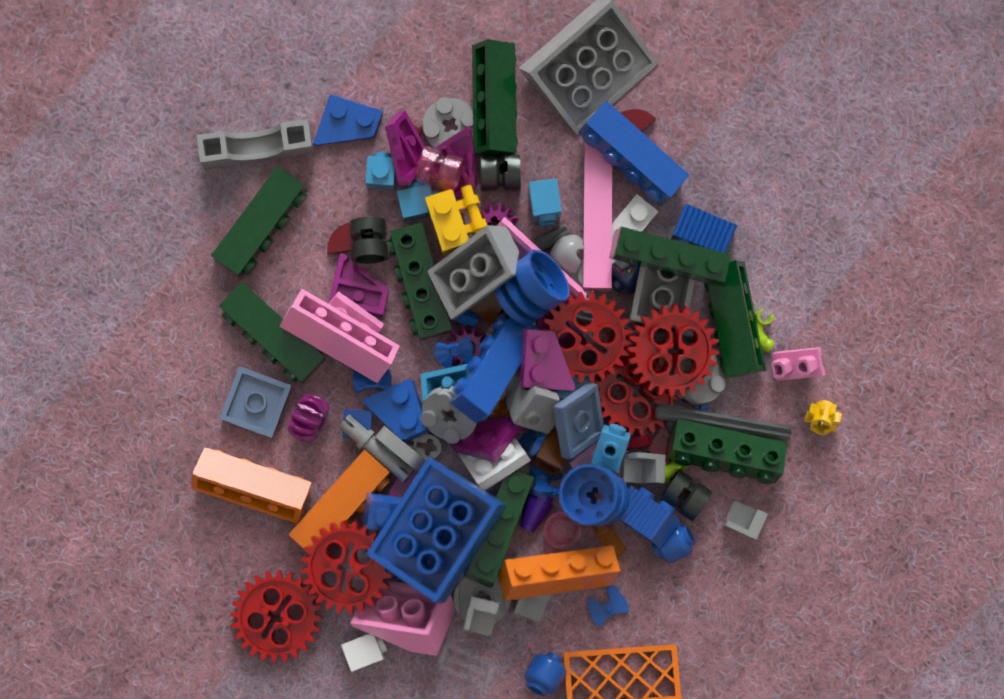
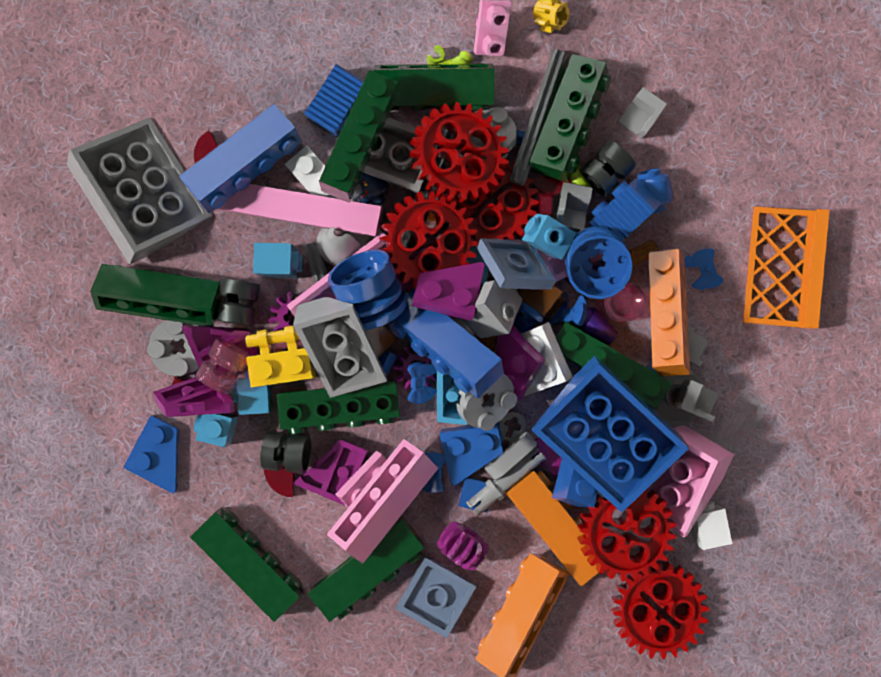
camera: 75 degrees left, 5 degrees up
(230, 148) = (164, 579): light grey arch -> none
(545, 674) = (764, 344): blue head -> none

